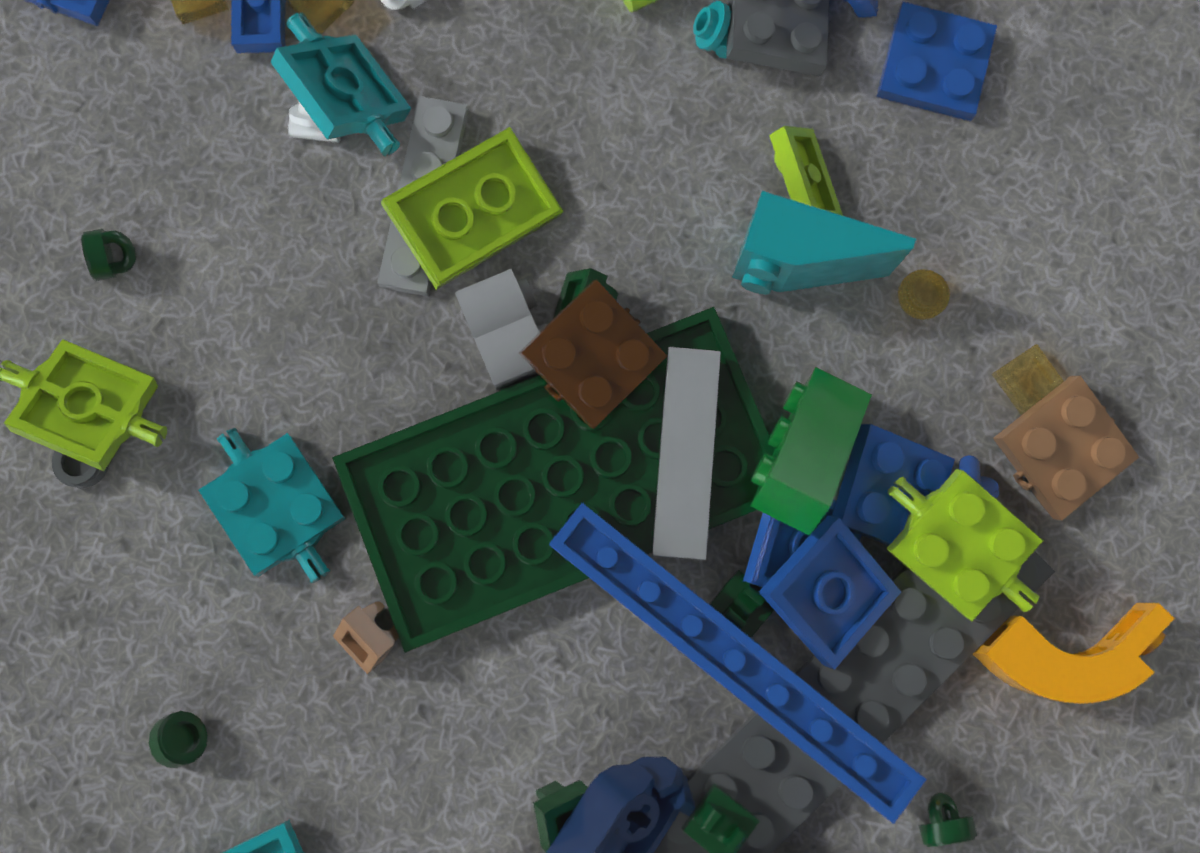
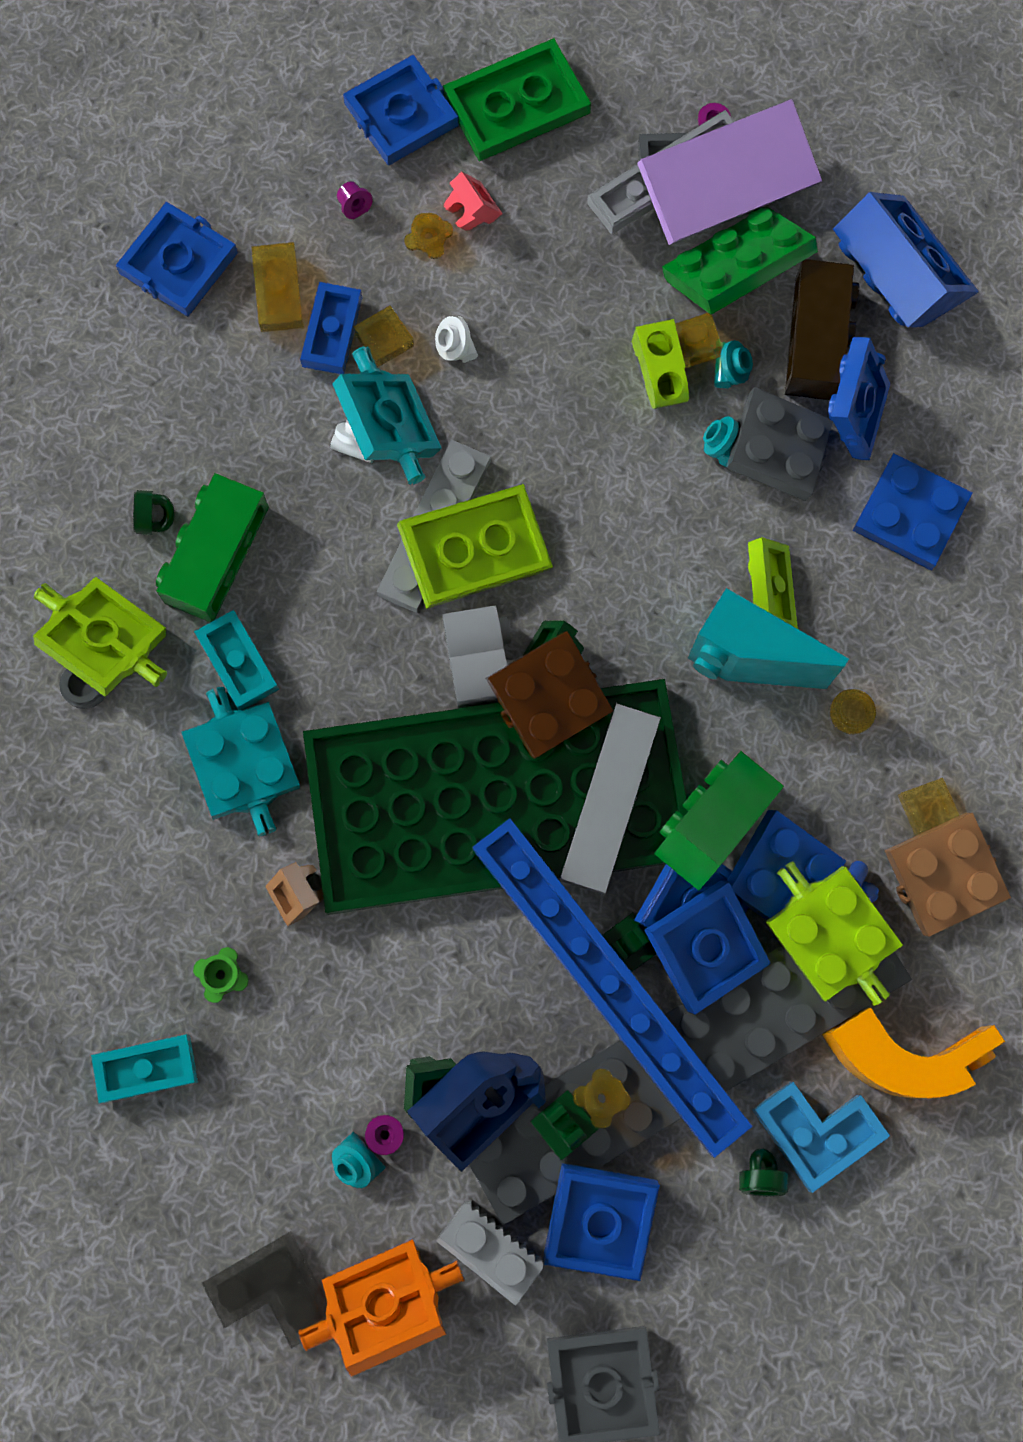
camera: 10 degrees right, 5 degrees down
(178, 739) = (112, 941): dark green tile -> none
(183, 276) = (212, 547): none -> green brick
(241, 395) = (236, 660): none -> teal plate
(291, 746) = (207, 972): none -> bright green plate
(770, 784) = (616, 1098): none -> clear yellow plate
(996, 777) = (818, 1147): none -> dark azure plate

